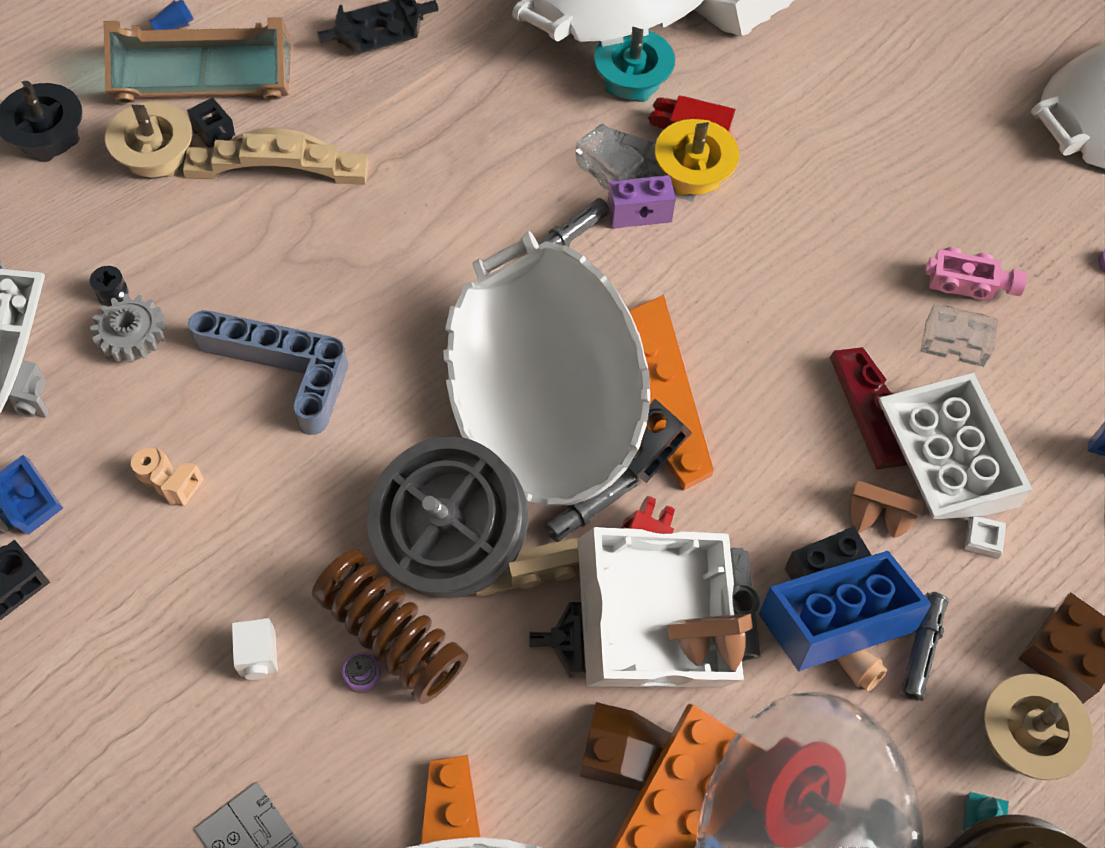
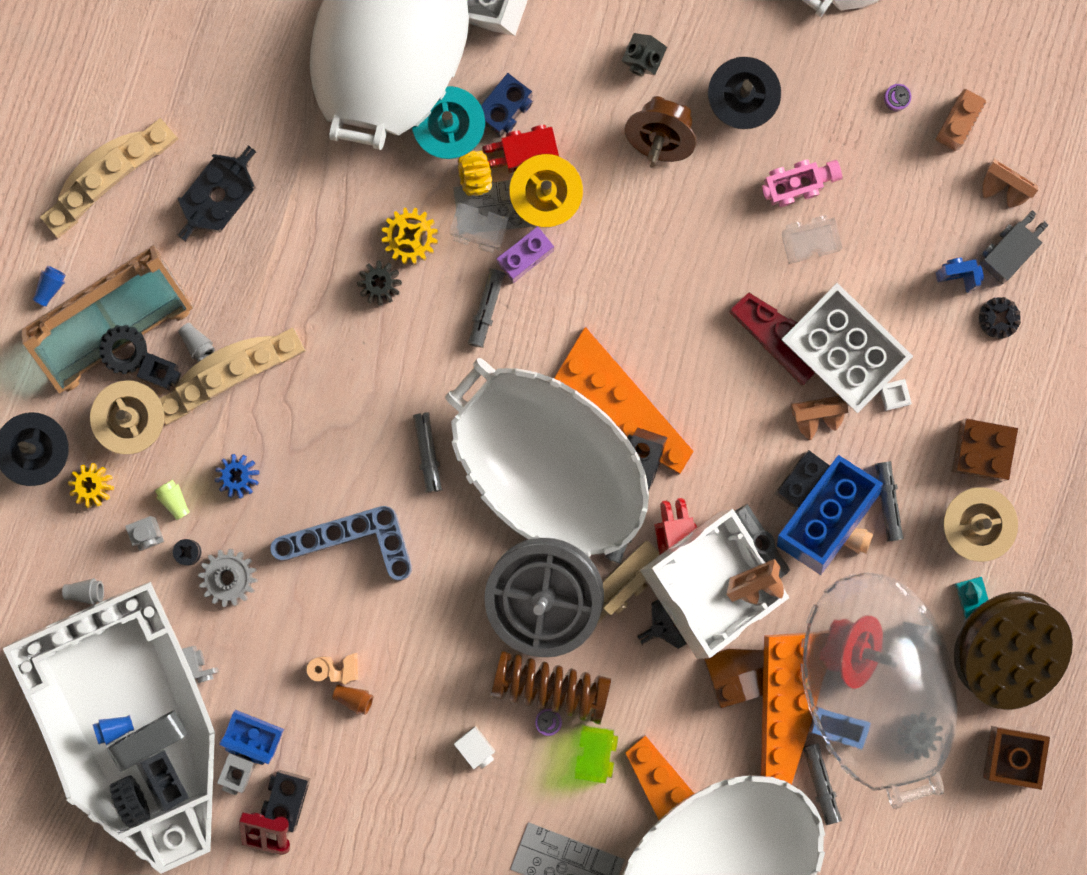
camera: 25 degrees left, 25 degrees up
(68, 181) = (83, 492): none -> yellow gear
(82, 245) = (145, 533): none -> light grey brick
(135, 231) = (172, 499): none -> yellowish green cone
(163, 521) = (354, 699): none -> dark orange cone
(188, 73) = (125, 365): none -> black tyre
(213, 245) = (246, 476): none -> blue gear
(266, 116) = (196, 343): none -> light grey cone
(392, 741) = (595, 762): none -> clear neon green brick
(415, 333) = (427, 452): none -> dark grey pin
(478, 157) = (376, 291): none -> pearl dark grey gear
(535, 135) = (420, 229): none -> yellow gear
(633, 111) = (474, 173): none -> yellow gear
(700, 78) = (499, 102): none -> dark blue brick
(845, 160) = (662, 131): none -> reddish brown piece
(862, 100) = (644, 54): none -> pearl dark grey brick
(951, 171) = (744, 93): none -> black piece

